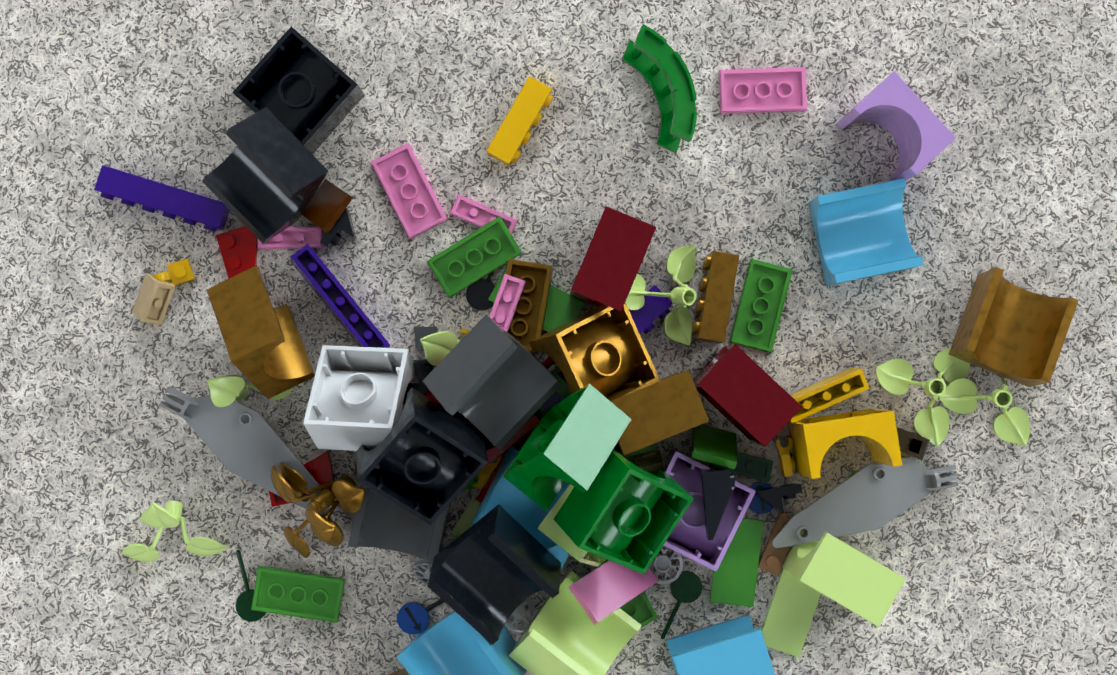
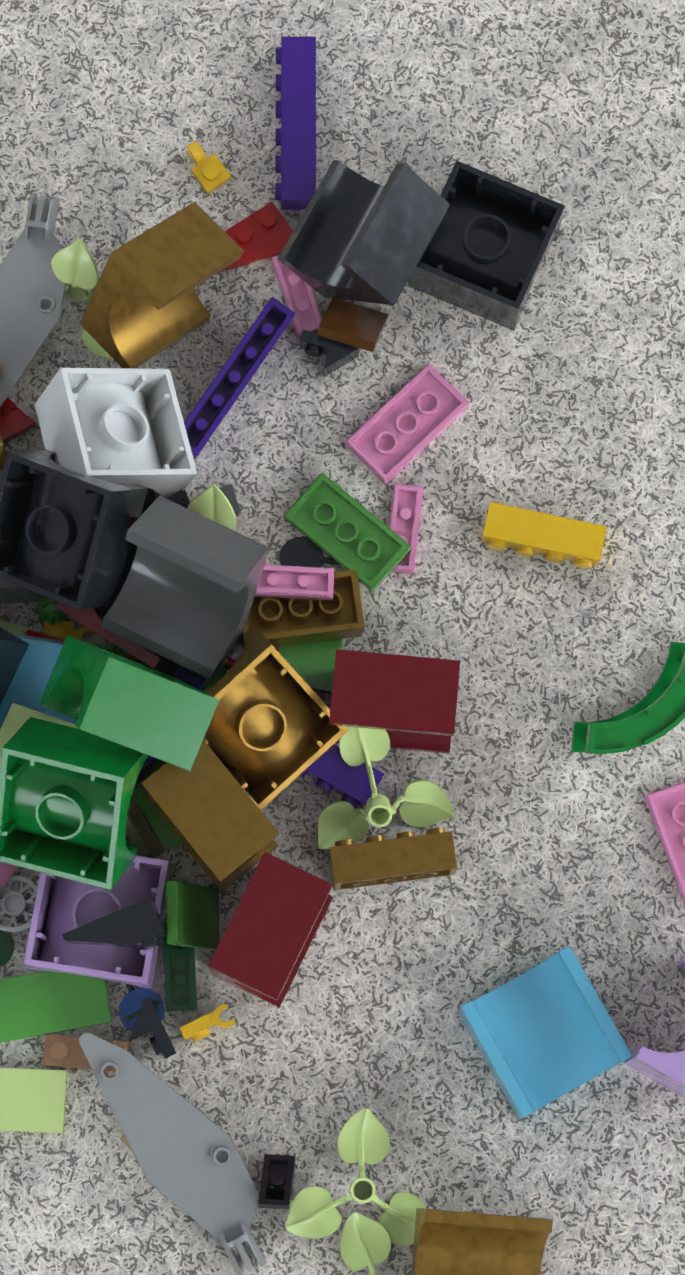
camera: 75 degrees right, 10 degrees down
(153, 300) = (163, 150): tan panel -> none
(760, 305) = (402, 929): bright green tile -> none
(816, 435) = (247, 1041): yellow piece -> none
(829, 392) = (307, 1046): yellow brick -> none
(845, 576) = (68, 1139): yellowish green piece -> none

